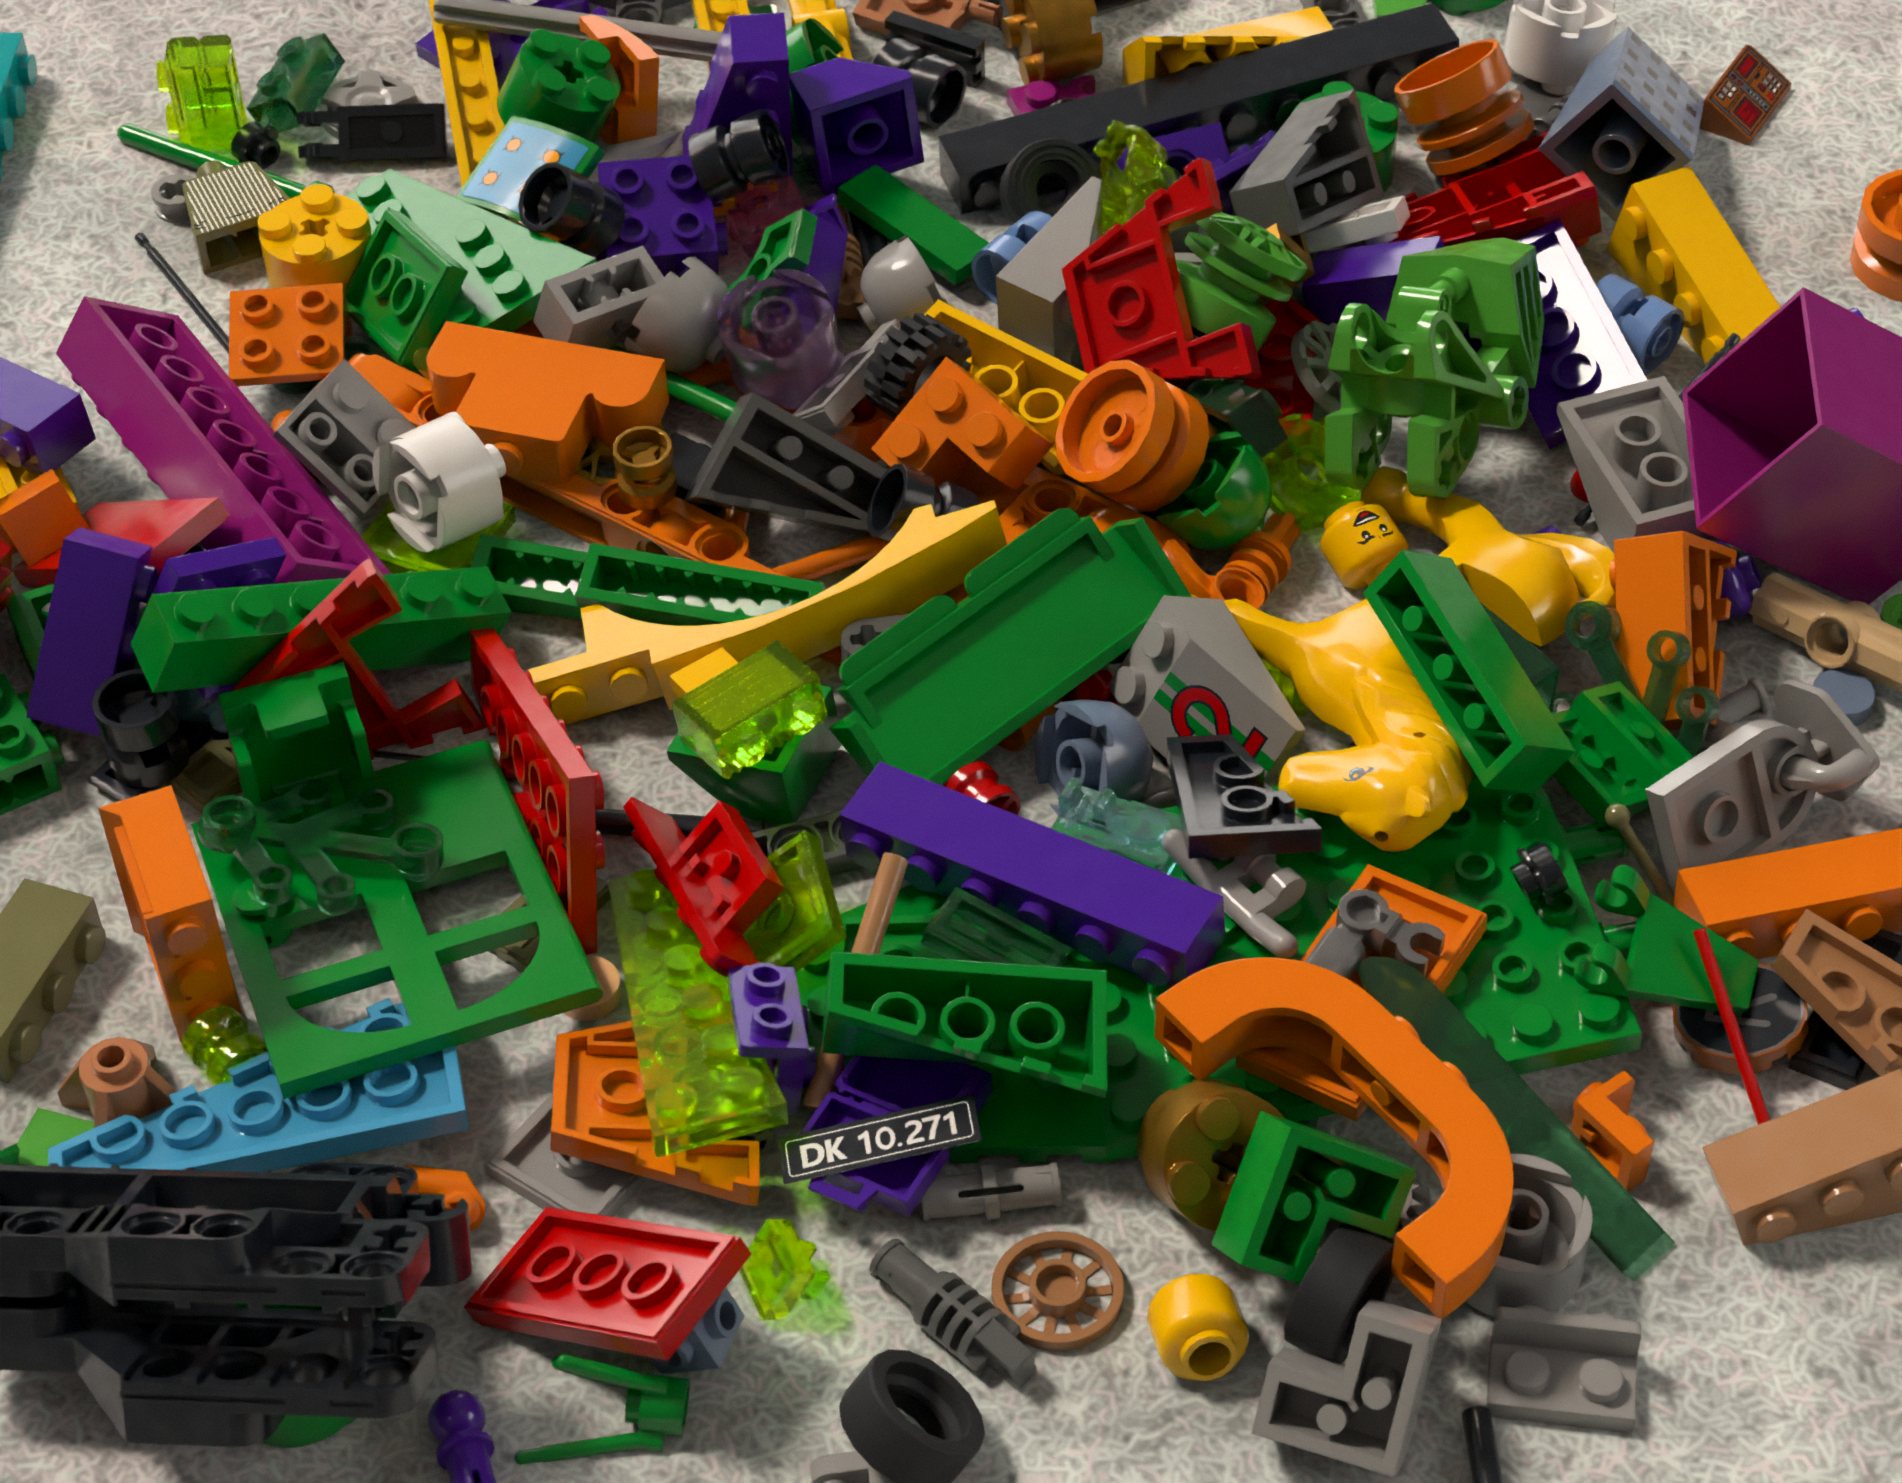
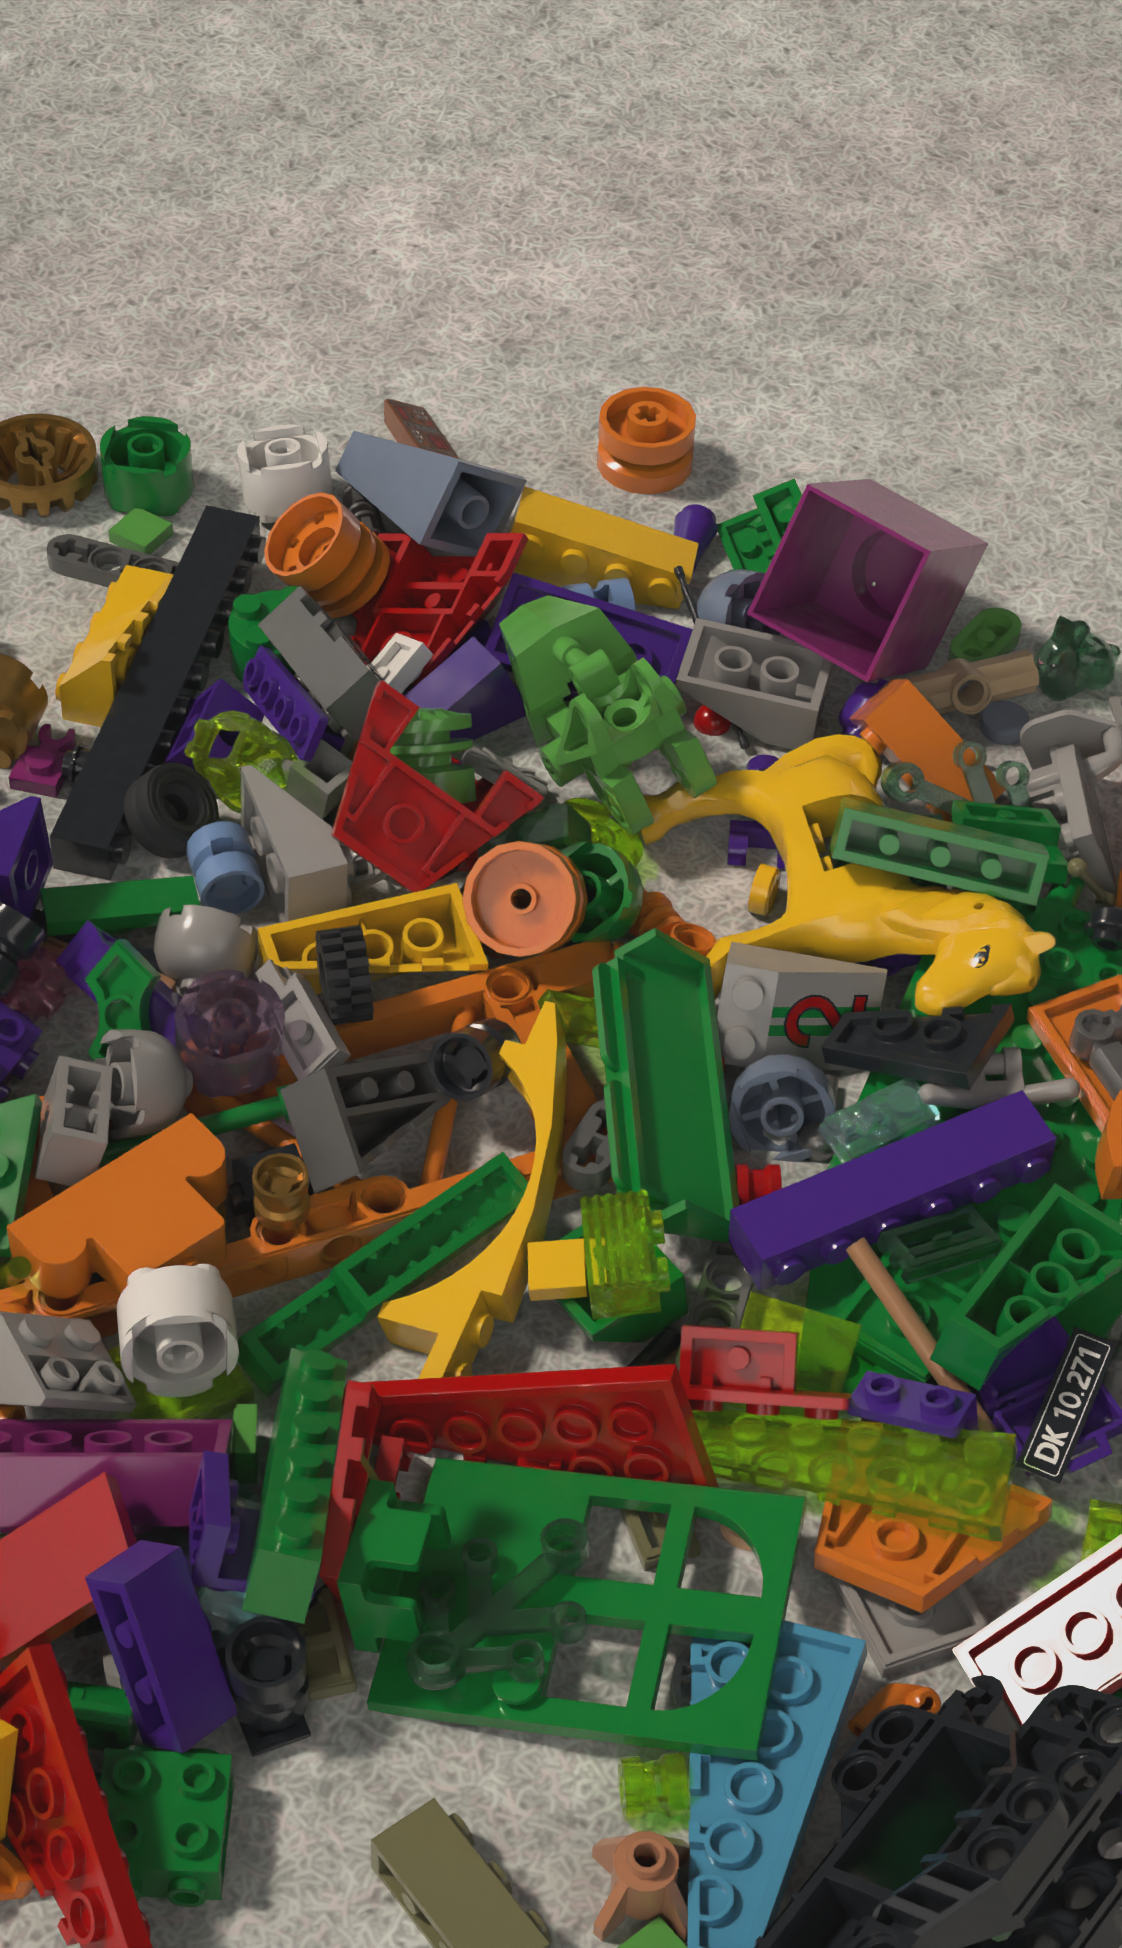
camera: 60 degrees left, 0 degrees up
(170, 903) = (532, 1734): orange window -> none
(961, 422) = (416, 979): orange brick -> none
(1360, 543) = (686, 857): yellow head -> none

